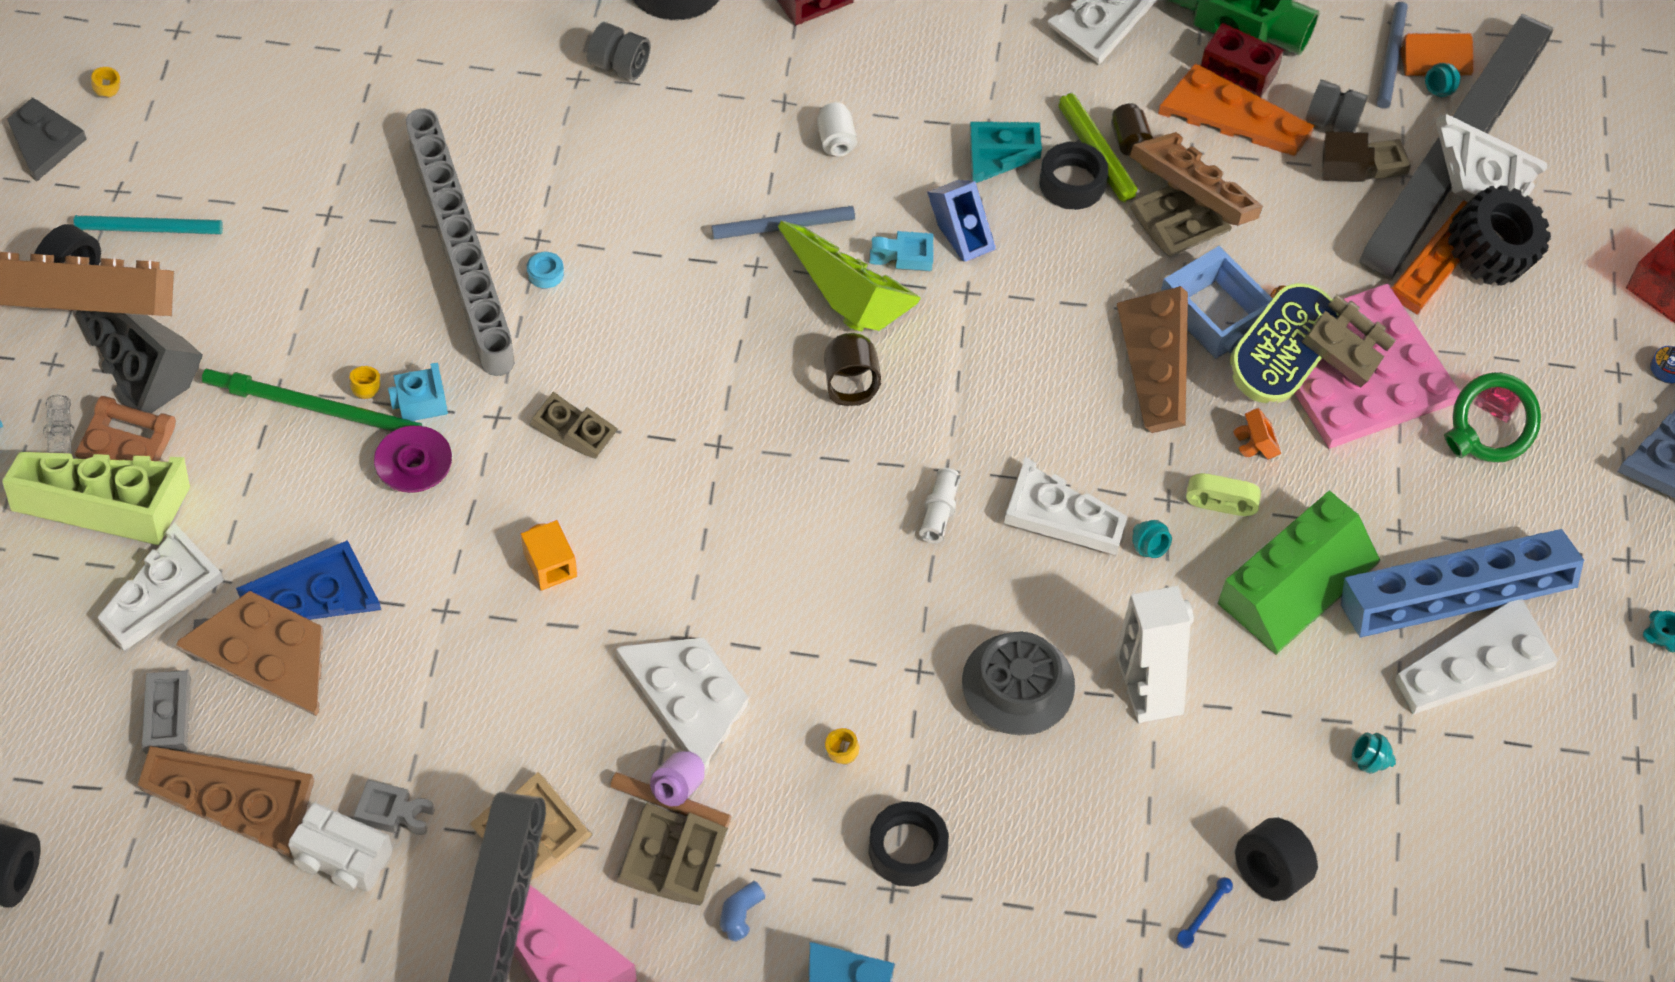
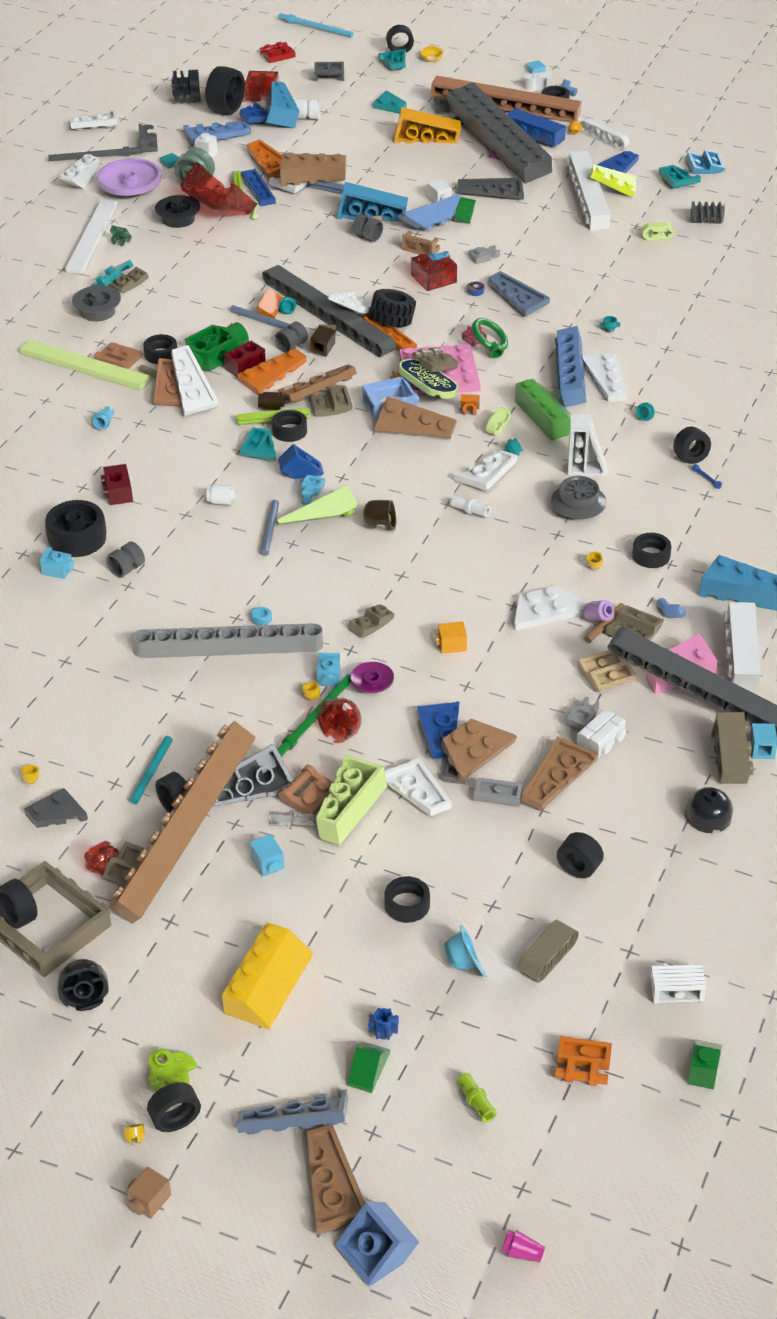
camera: 70 degrees left, 15 degrees down
(289, 437) = (339, 719): none -> clear red cylinder

